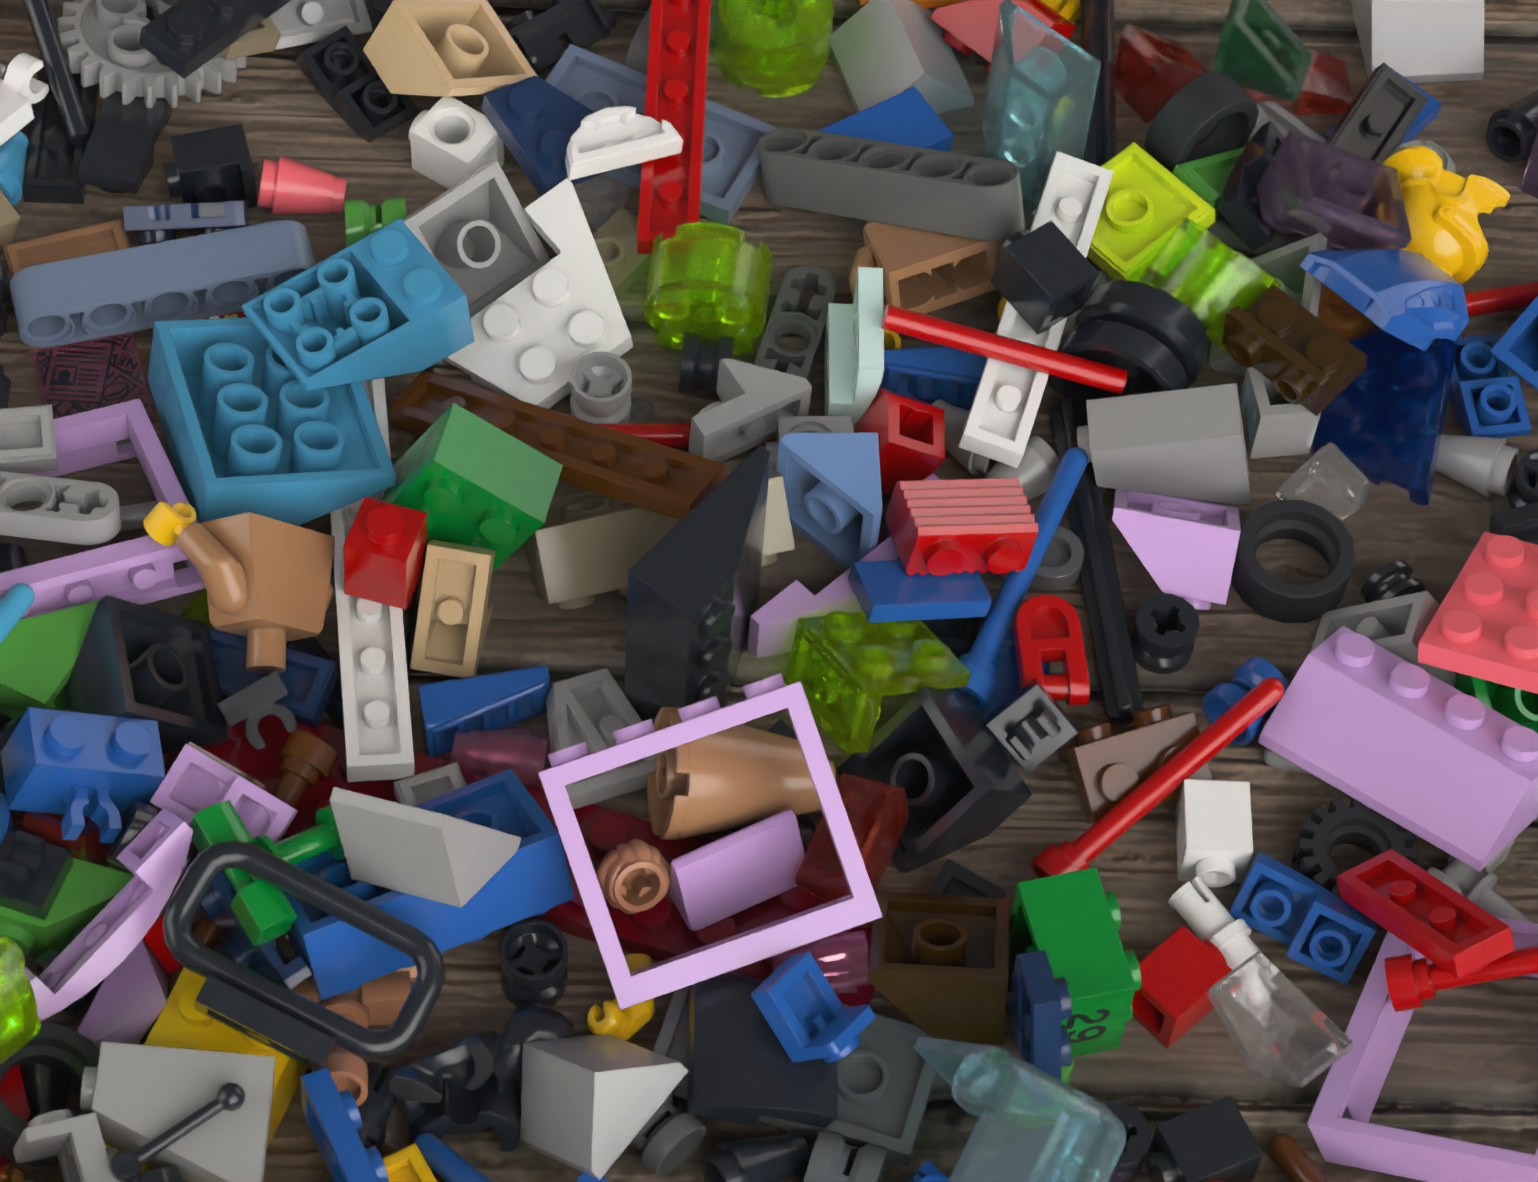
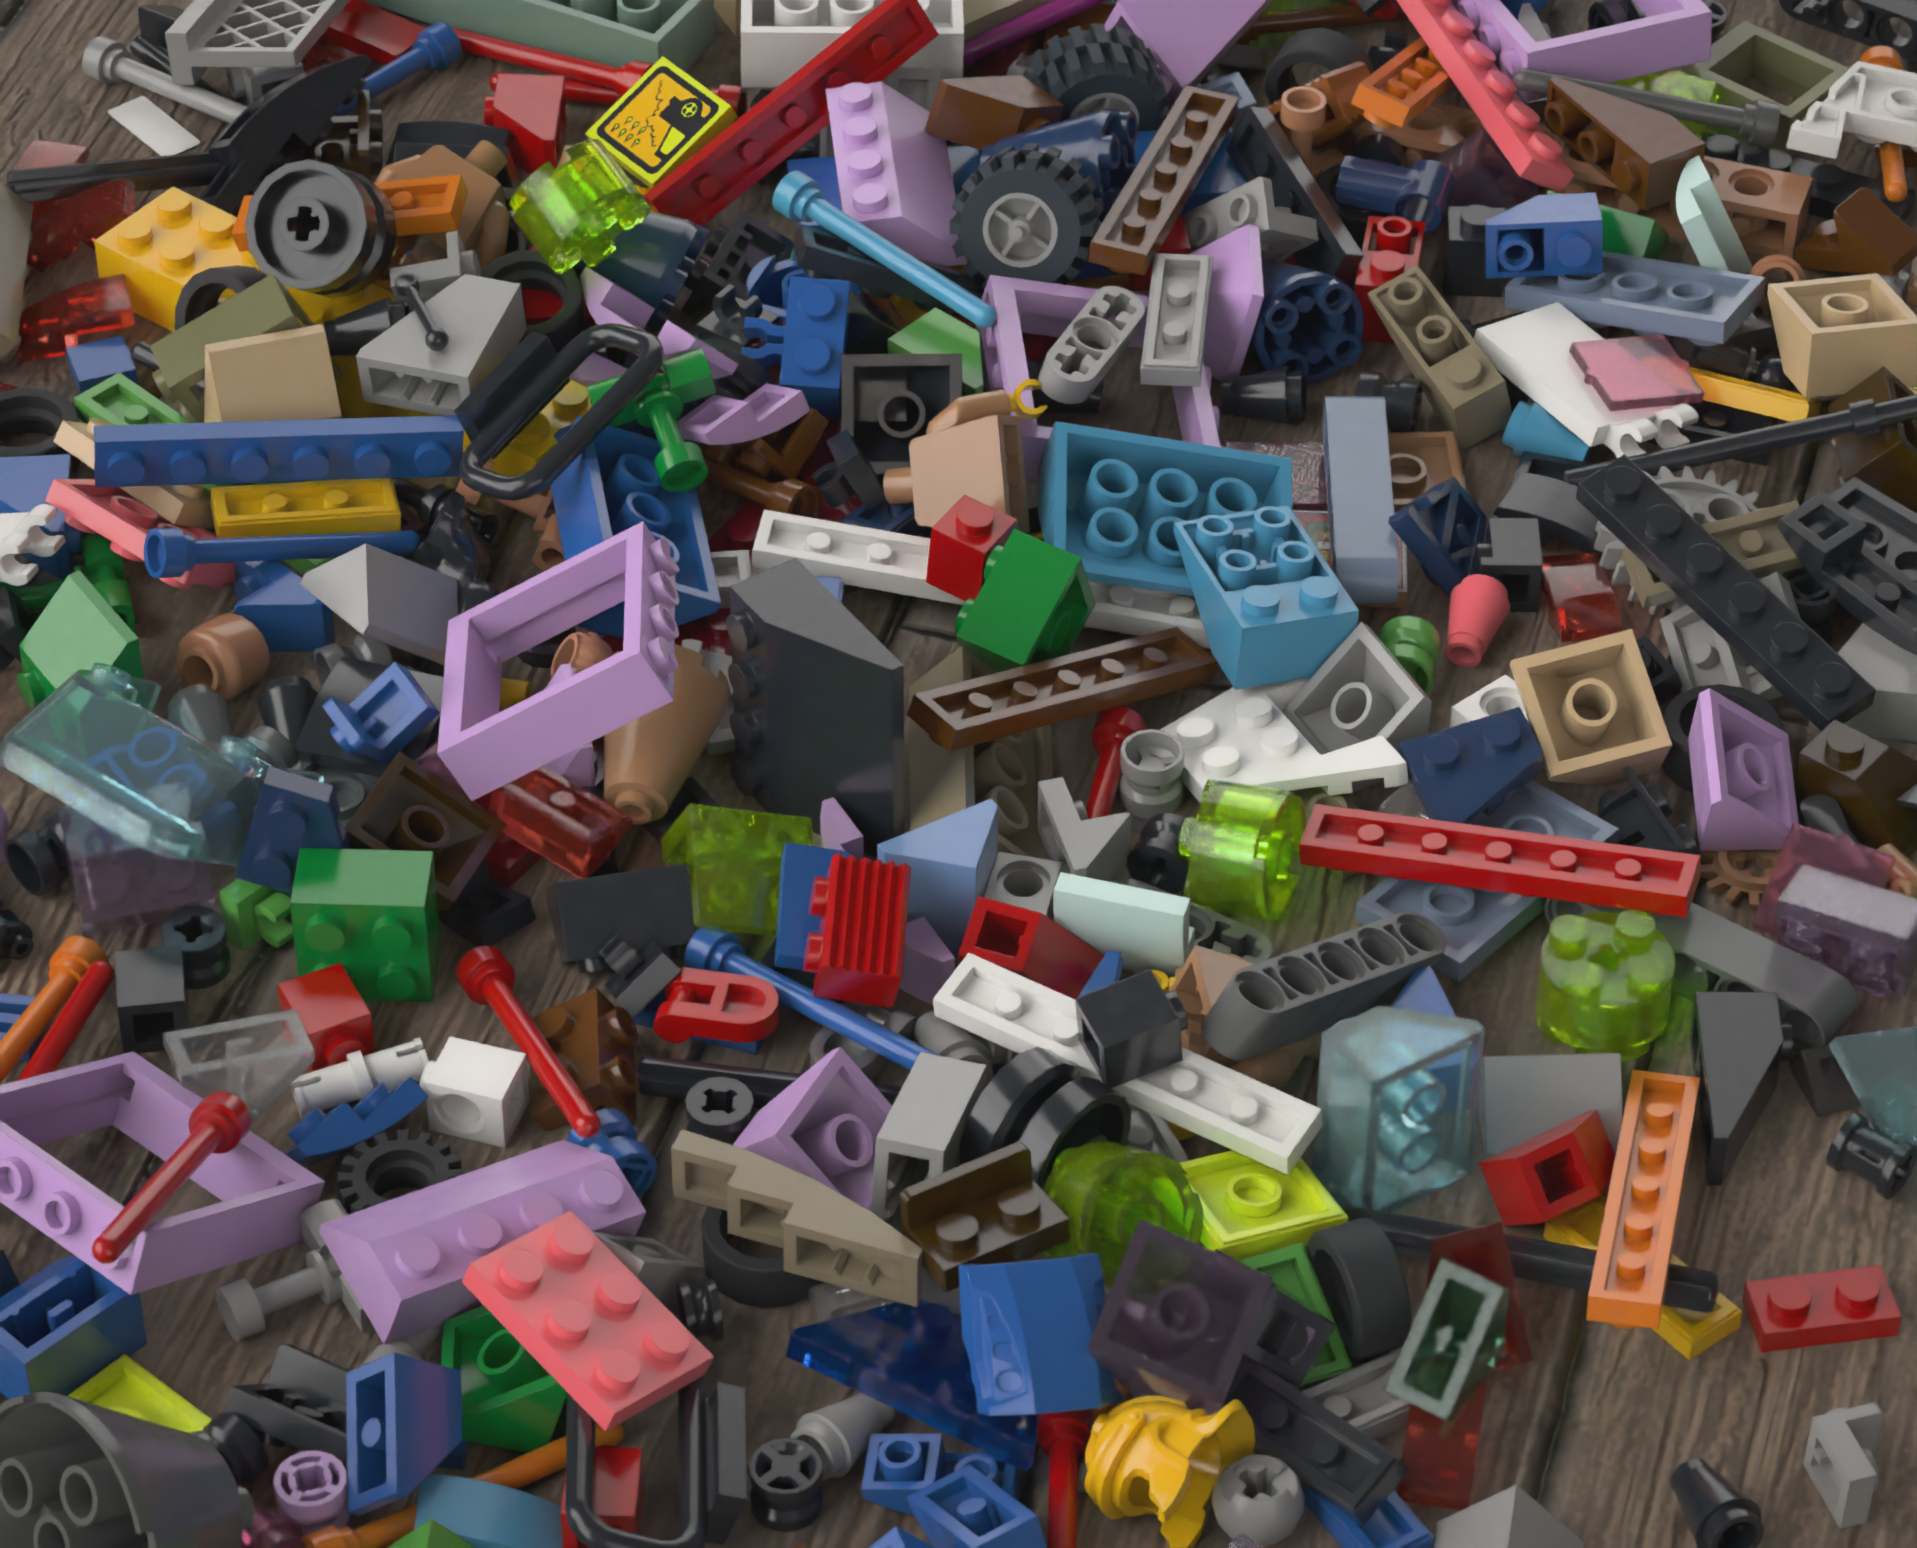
camera: 110 degrees right, 15 degrees down
(263, 107) = (1579, 597): none -> clear red slope
(418, 848) = (628, 472): light grey slope -> none
(453, 609) = (928, 631): tan slope -> none
(618, 139) = (1431, 786): white tile -> none
(1004, 349) = (1066, 969): red bar -> none
(1319, 497) = (817, 1227): none -> dark tan slope
(1426, 913) = (272, 1133): red plate -> none

